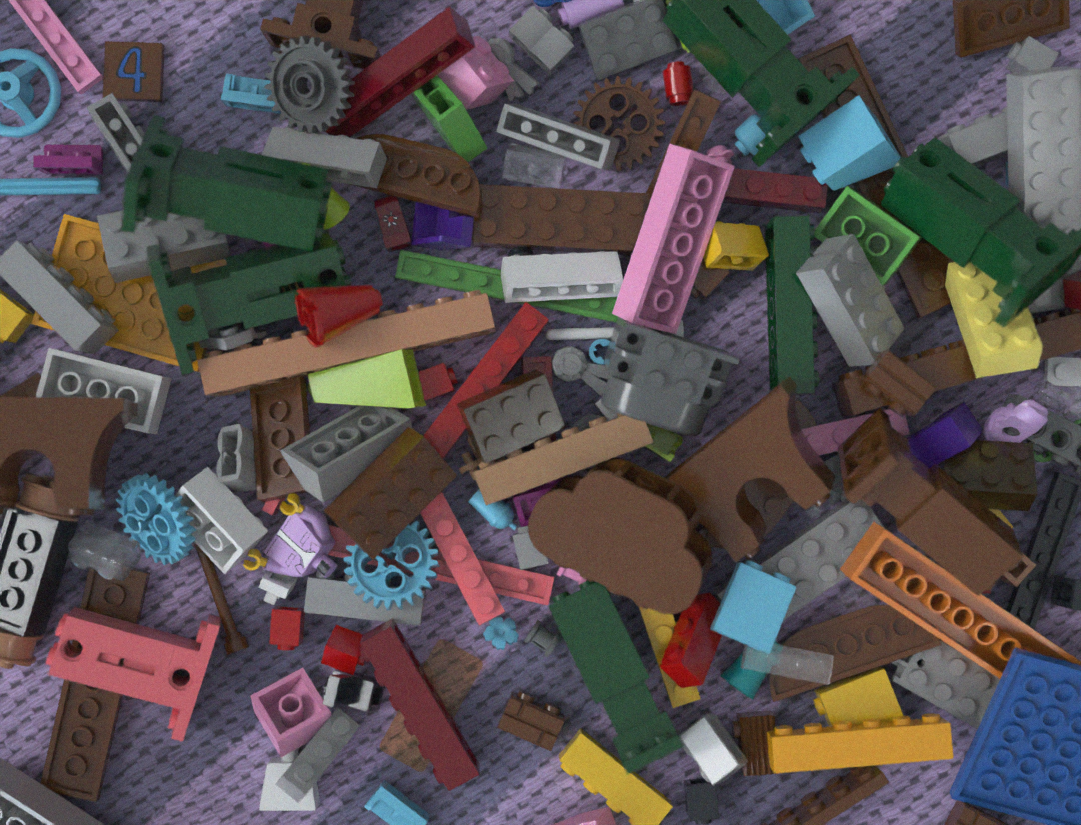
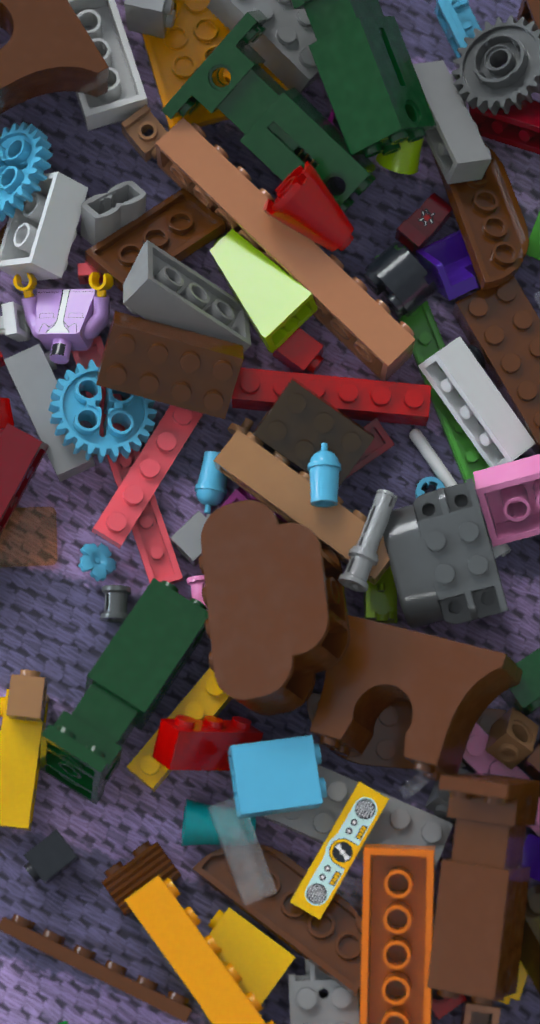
camera: 60 degrees right, 10 degrees down
(177, 395) = (136, 126): none -> medium nougat brick
(230, 337) = (223, 136): light grey plate -> none
(429, 273) = (399, 280): none -> black brick
(531, 720) = (28, 639): reddish brown brick -> none
(553, 432) = (324, 477): none -> medium azure piece
(571, 365) = (398, 470): light grey piece -> none
(577, 752) = (27, 696): none -> medium nougat brick
(632, 441) = (364, 554): none -> light grey pin
(712, 749) = (109, 833): white brick -> none
(826, 412) = (512, 738): none -> medium nougat brick
(832, 591) = (339, 850): none -> tile

